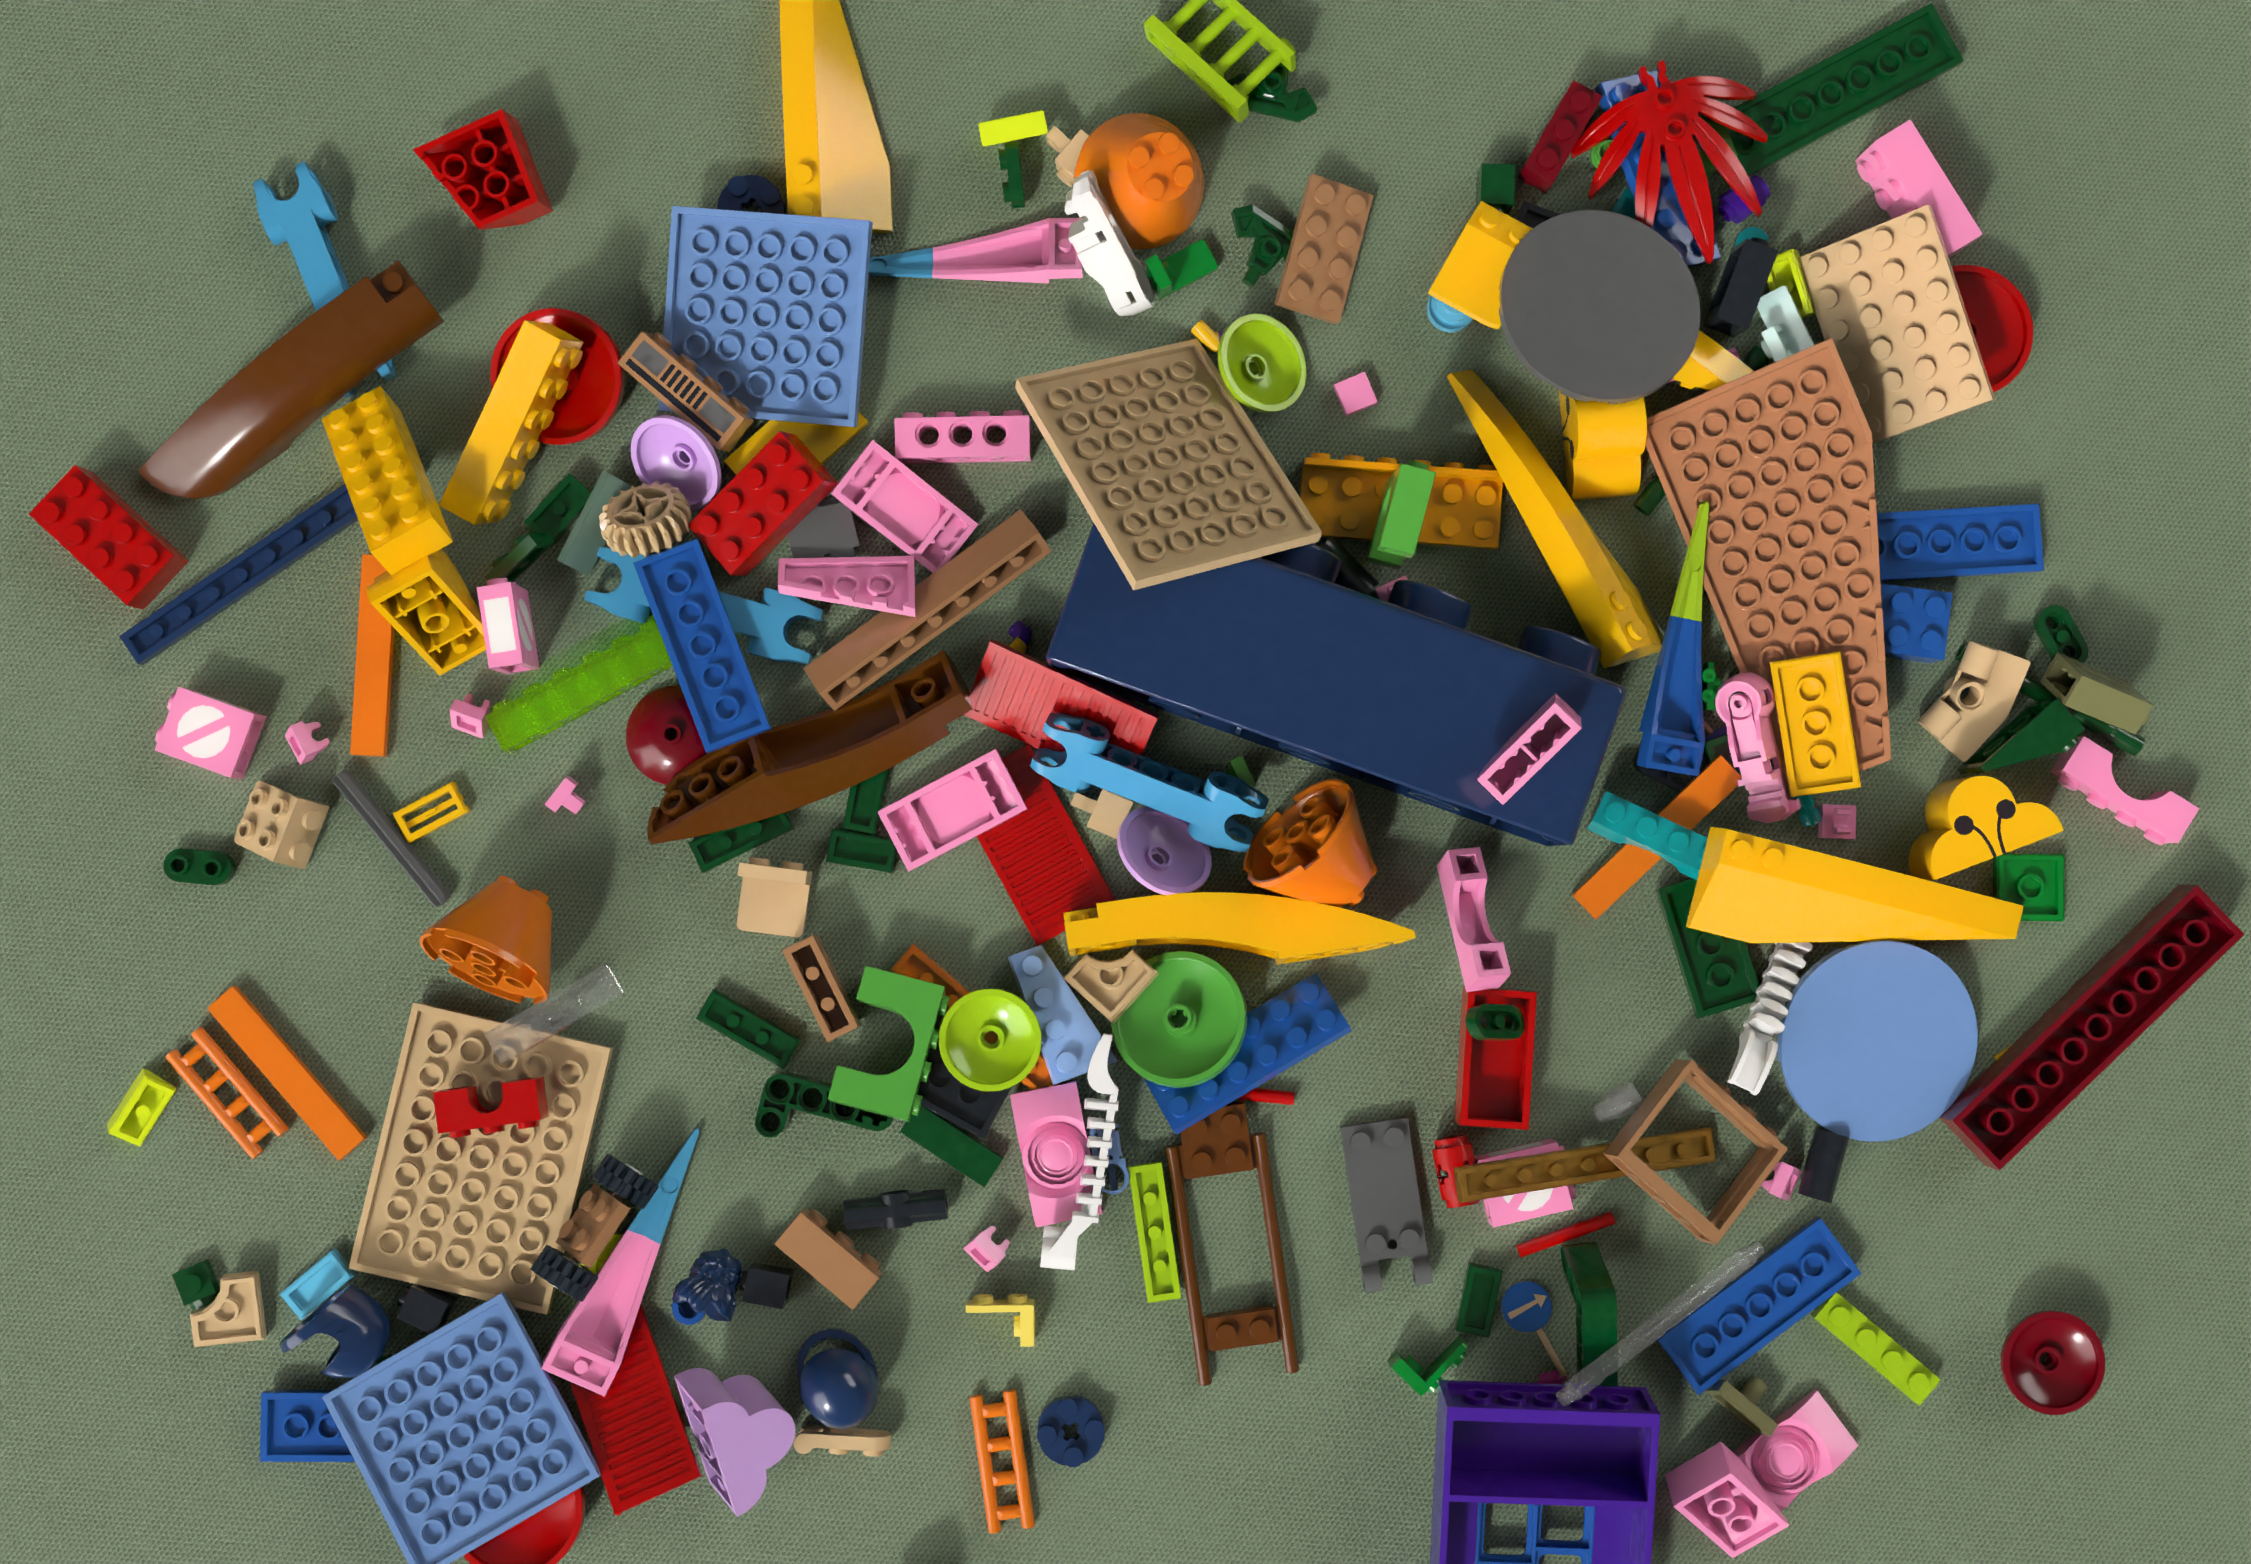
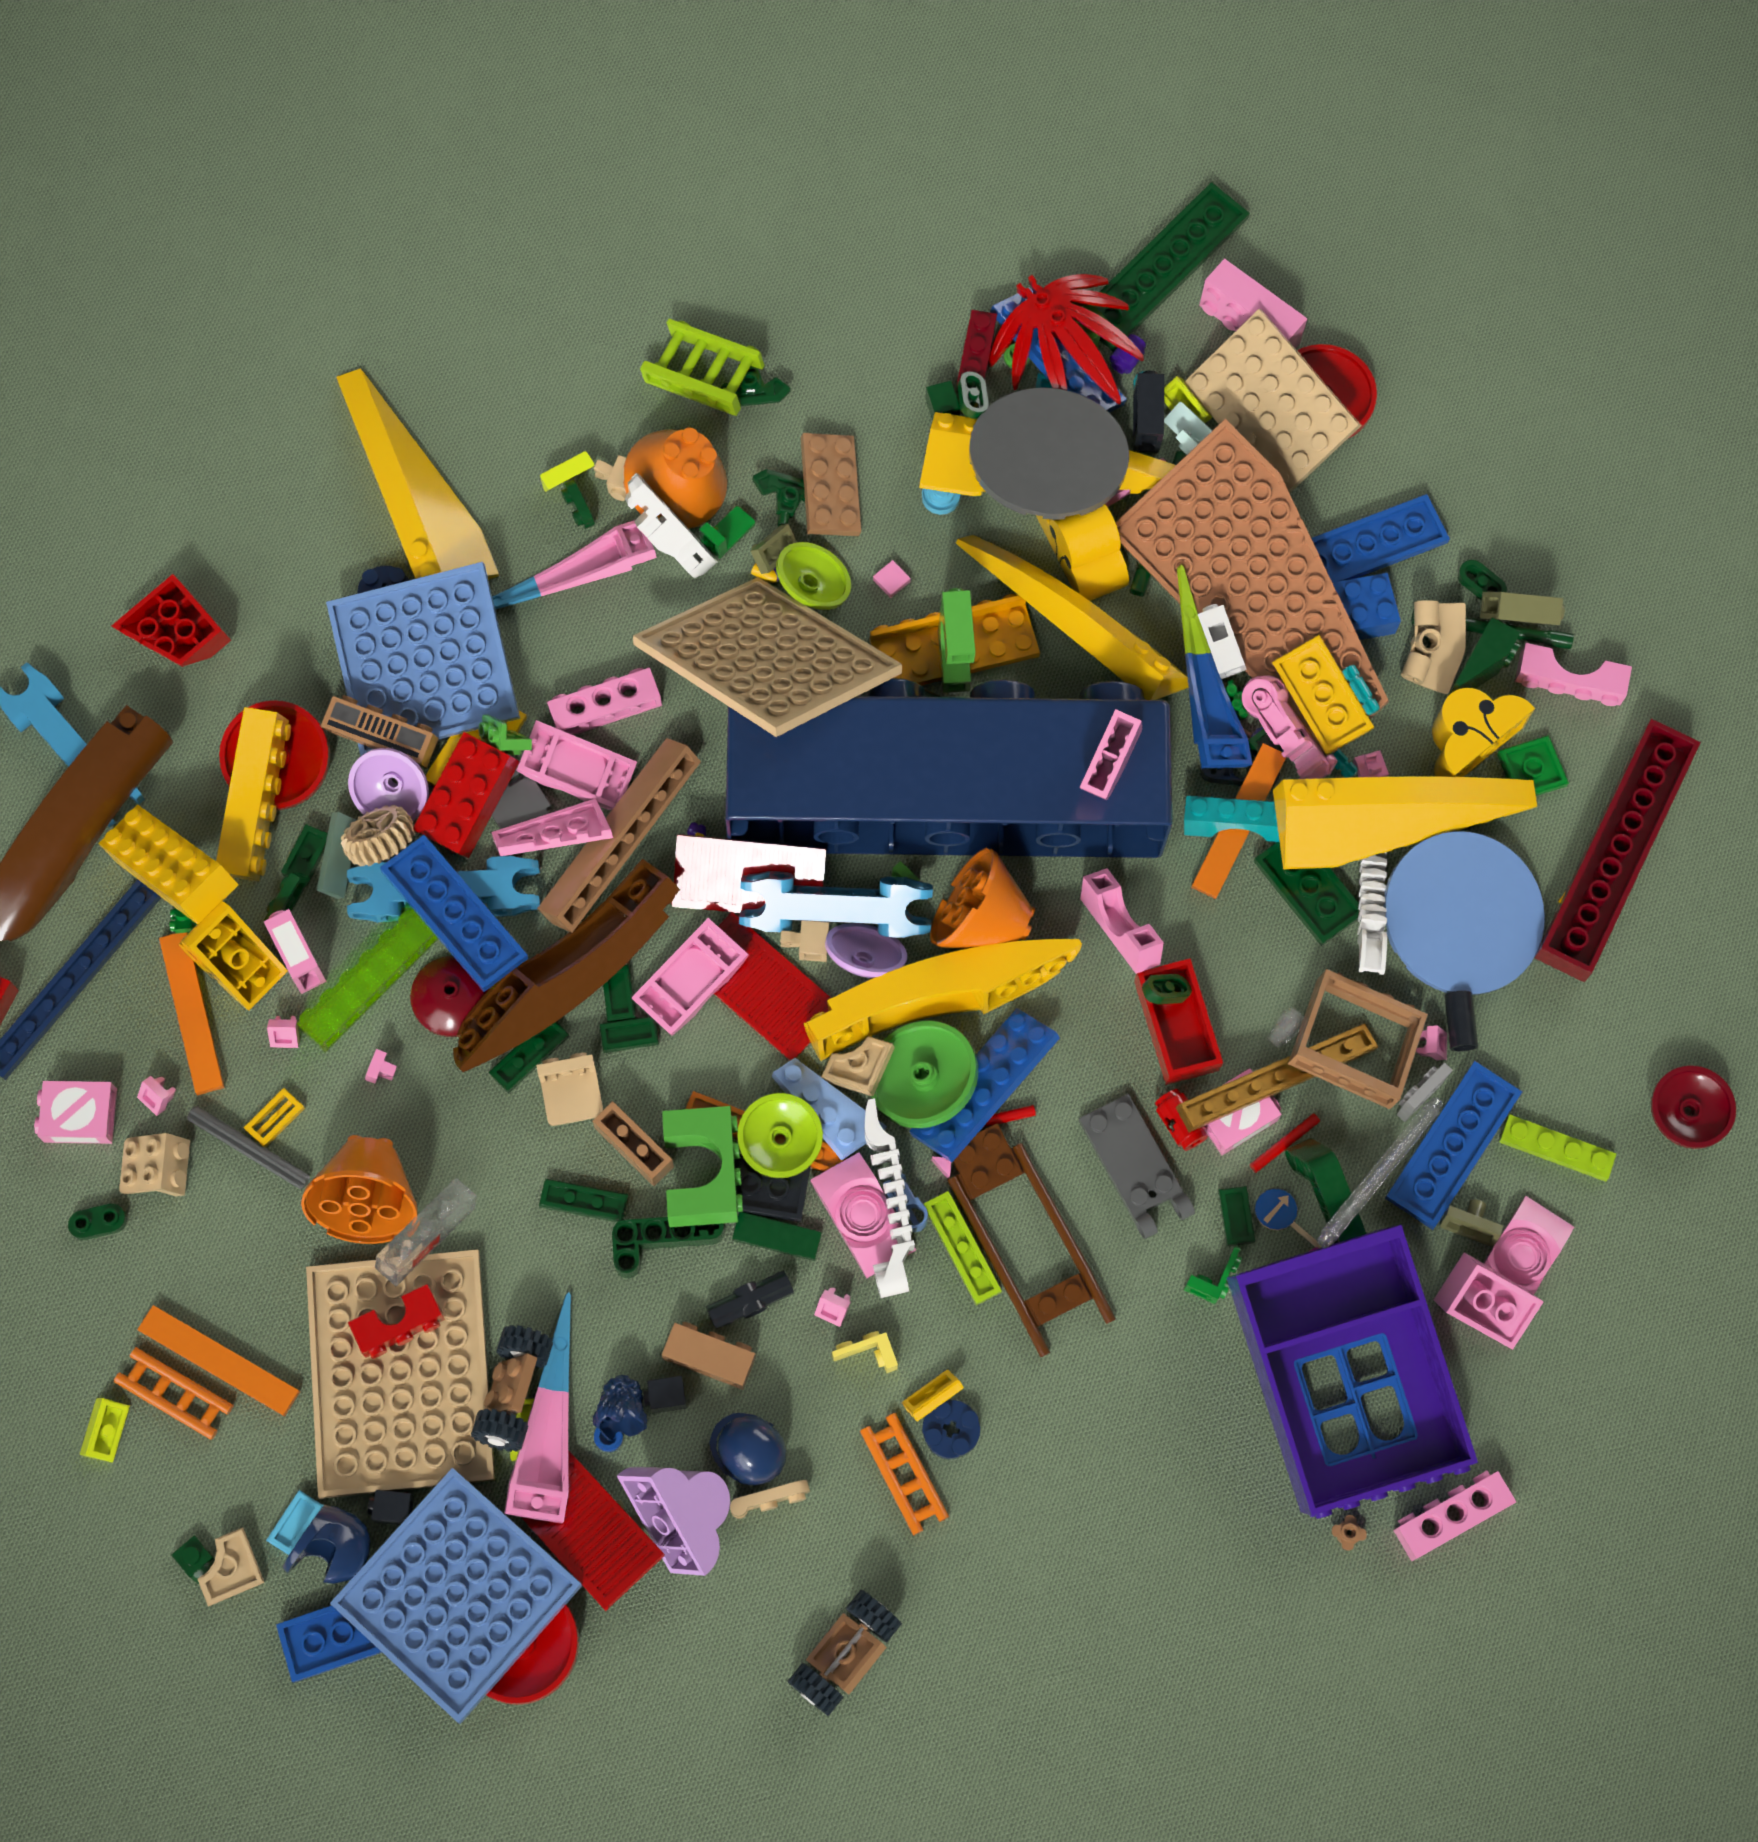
camera: 20 degrees left, 15 degrees down
(827, 451) = (496, 734): none -> bright green bracket
(1063, 1392) = (932, 1395): none -> yellow tile
(1166, 1129) = (943, 1165): none -> bright pink piece
(1218, 313) = (769, 549): none -> olive tile
(1533, 200) = (972, 394): none -> dark green plate
(1719, 614) = (1221, 640): none -> white brick
(1753, 1237) = (1428, 1085): none -> light grey plate
(1863, 736) = (1361, 690): none -> teal axle

